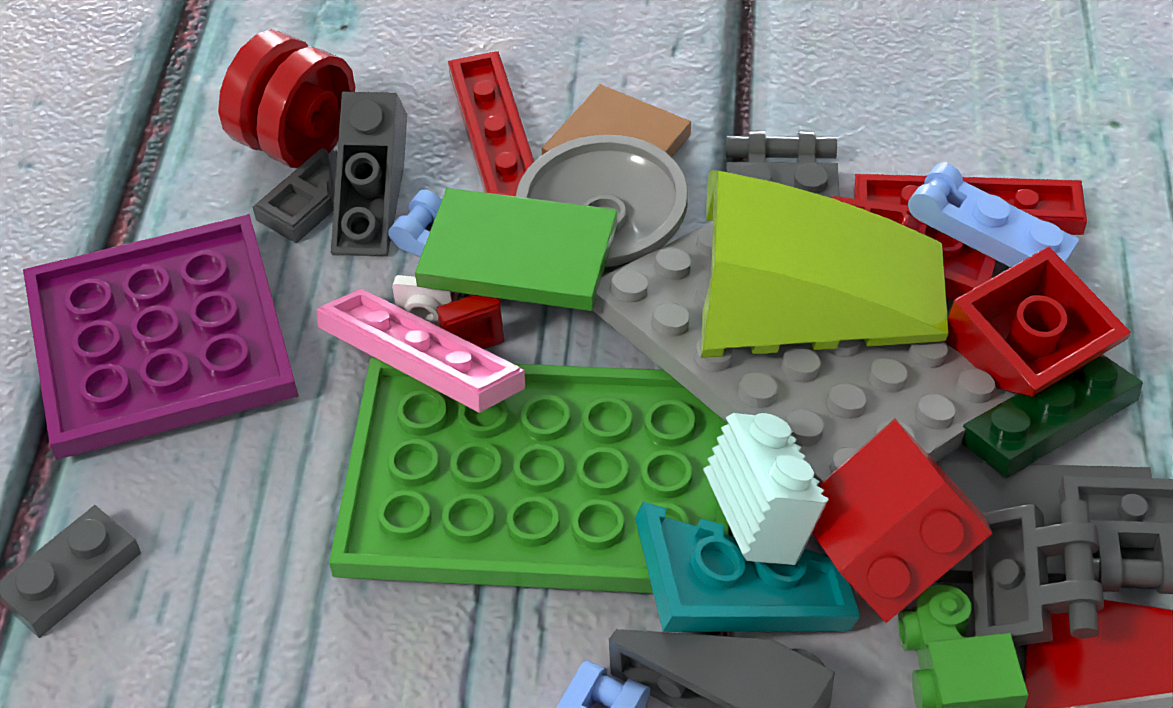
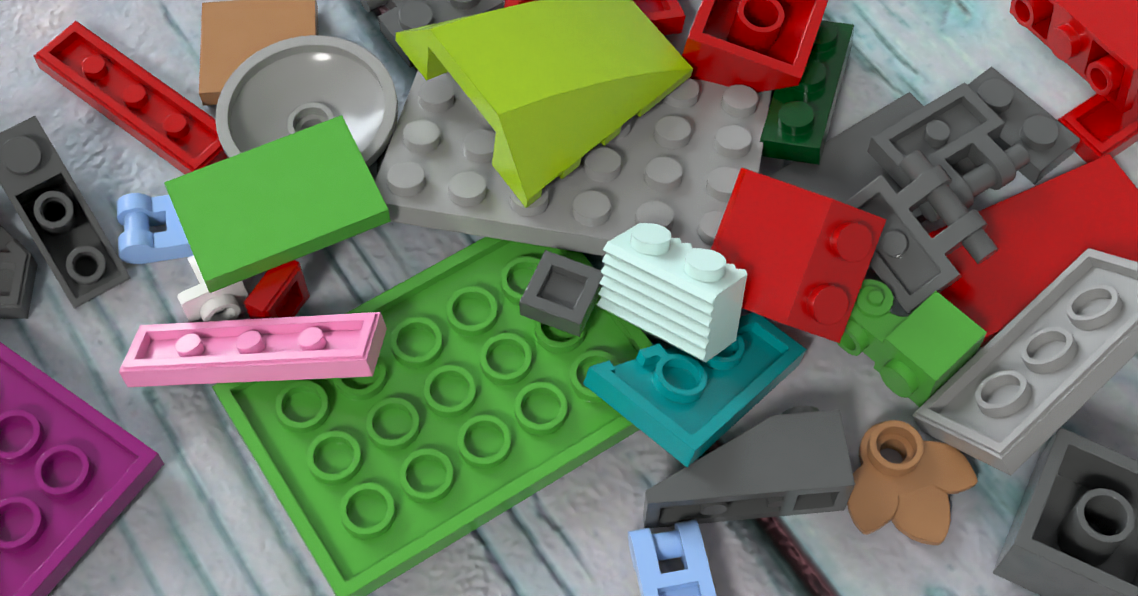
camera: 40 degrees left, 10 degrees up
(678, 441) = (561, 293): none -> dark grey plate

